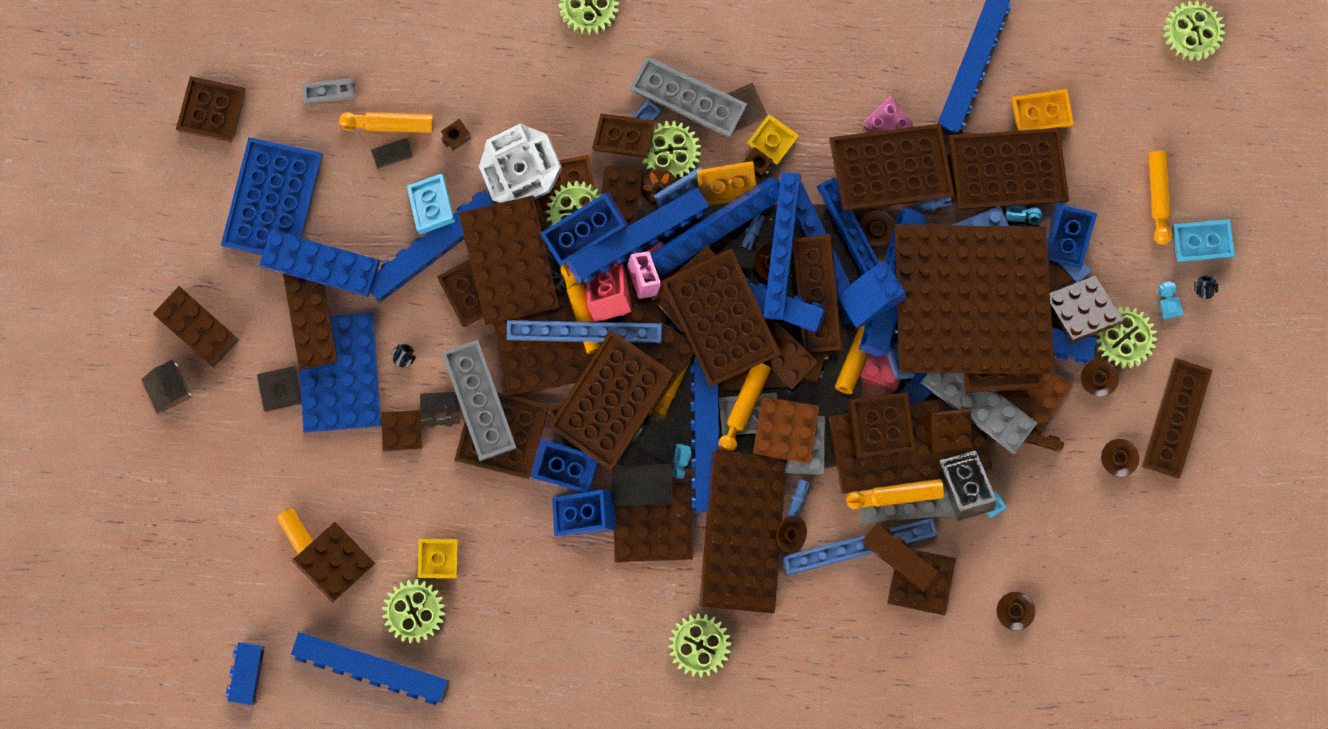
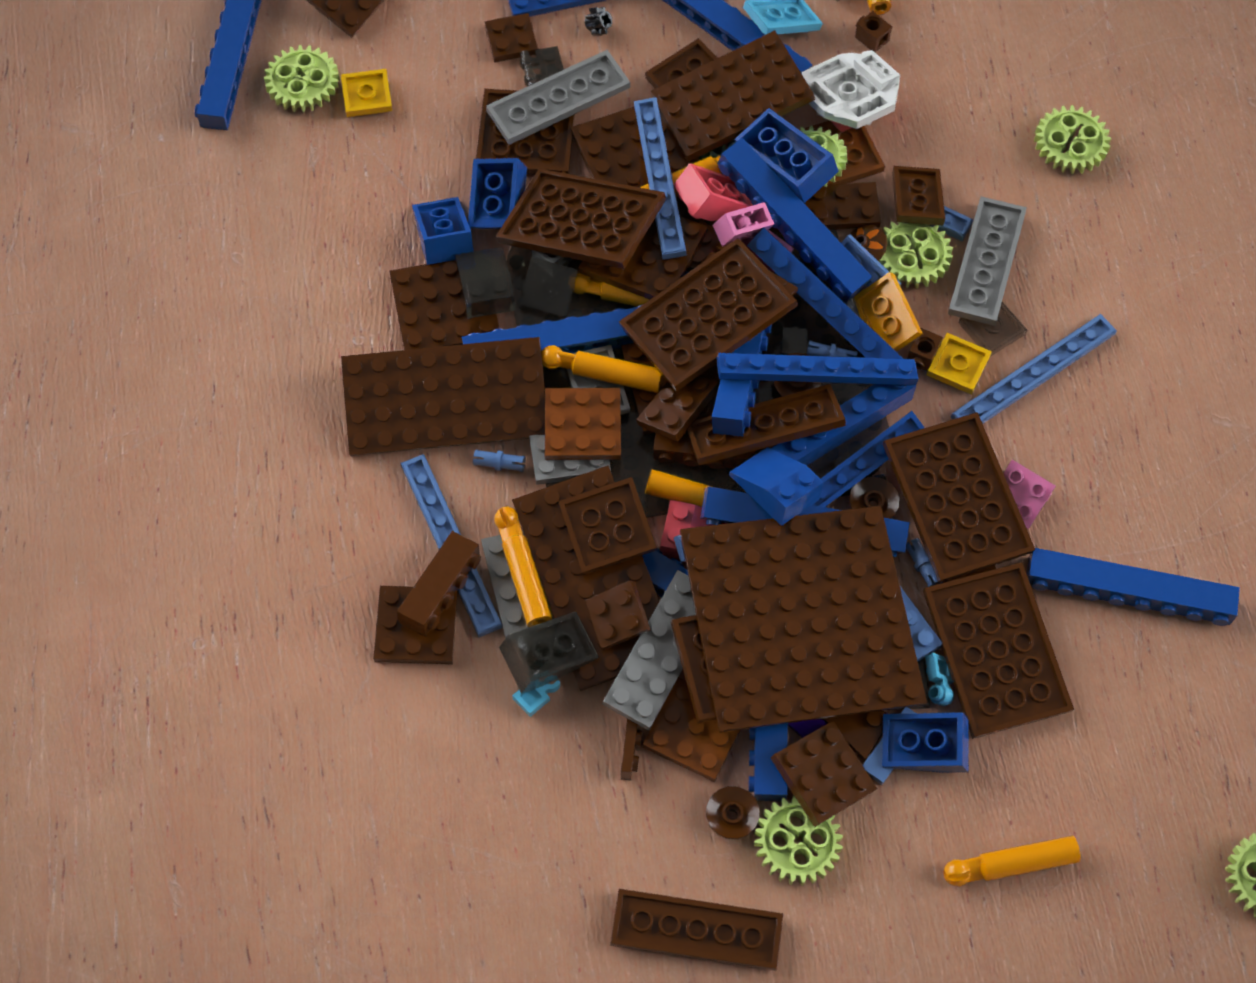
camera: 80 degrees right, 15 degrees down
(681, 459) = (529, 316): medium azure plate -> none
(708, 629) = (277, 370): yellowish green gear -> none
(788, 87) = (1038, 370): none -> medium blue tile
(791, 534) = (452, 468): reddish brown dish -> none
(1025, 609) = (387, 734): reddish brown dish -> none
(1042, 110) = (1092, 686): light orange plate -> none
(1128, 453) = (629, 843): reddish brown dish -> none
(1170, 306) = (857, 900): medium azure plate -> none
(1203, 241) = (963, 933): medium azure plate -> none
(1206, 287) = (896, 943): black gear -> none

